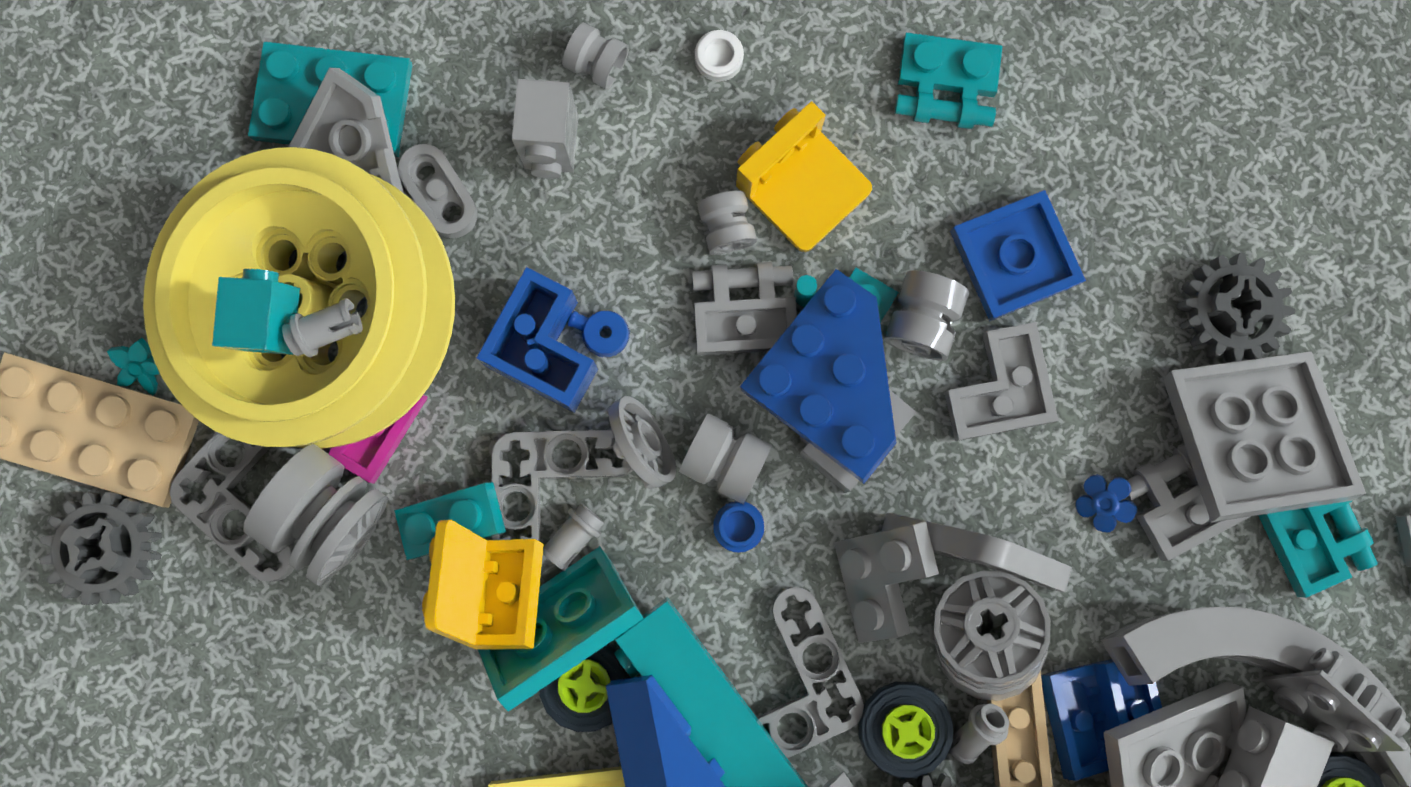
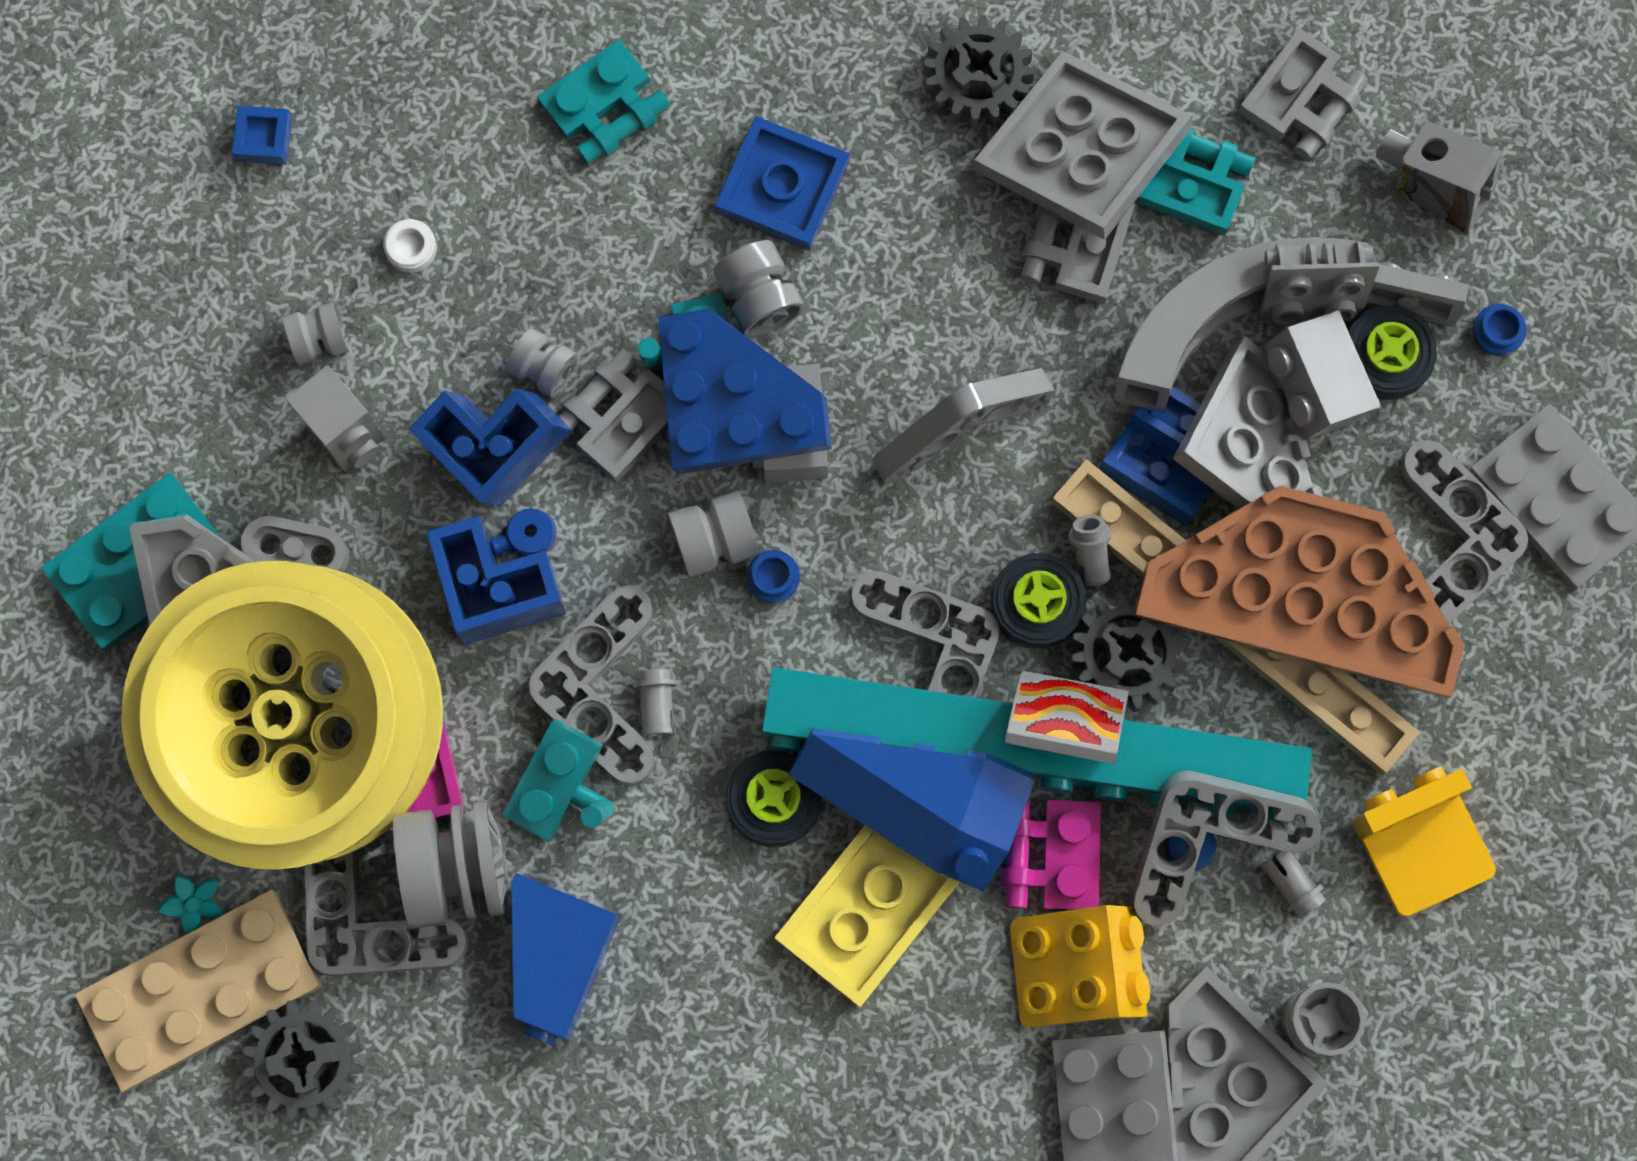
camera: 40 degrees left, 5 degrees down
(253, 312) = (274, 732): teal brick -> none
(321, 328) = (333, 695): light grey pin -> none
(330, 644) = (554, 956): none -> blue slope
(482, 588) = (632, 789): yellow bracket -> none
(574, 619) = (710, 772): teal plate -> none
(625, 250) = (491, 453): none -> blue brick
(641, 442) = (639, 580): light grey wheel -> none
(801, 179) = (567, 278): yellow bracket -> none
(871, 575) = (900, 507): light grey plate -> none
(980, 663) = (1040, 492): light grey wheel -> none
(1016, 396) = (881, 282): light grey plate -> none
(1106, 502) = (1023, 299): blue plant -> none

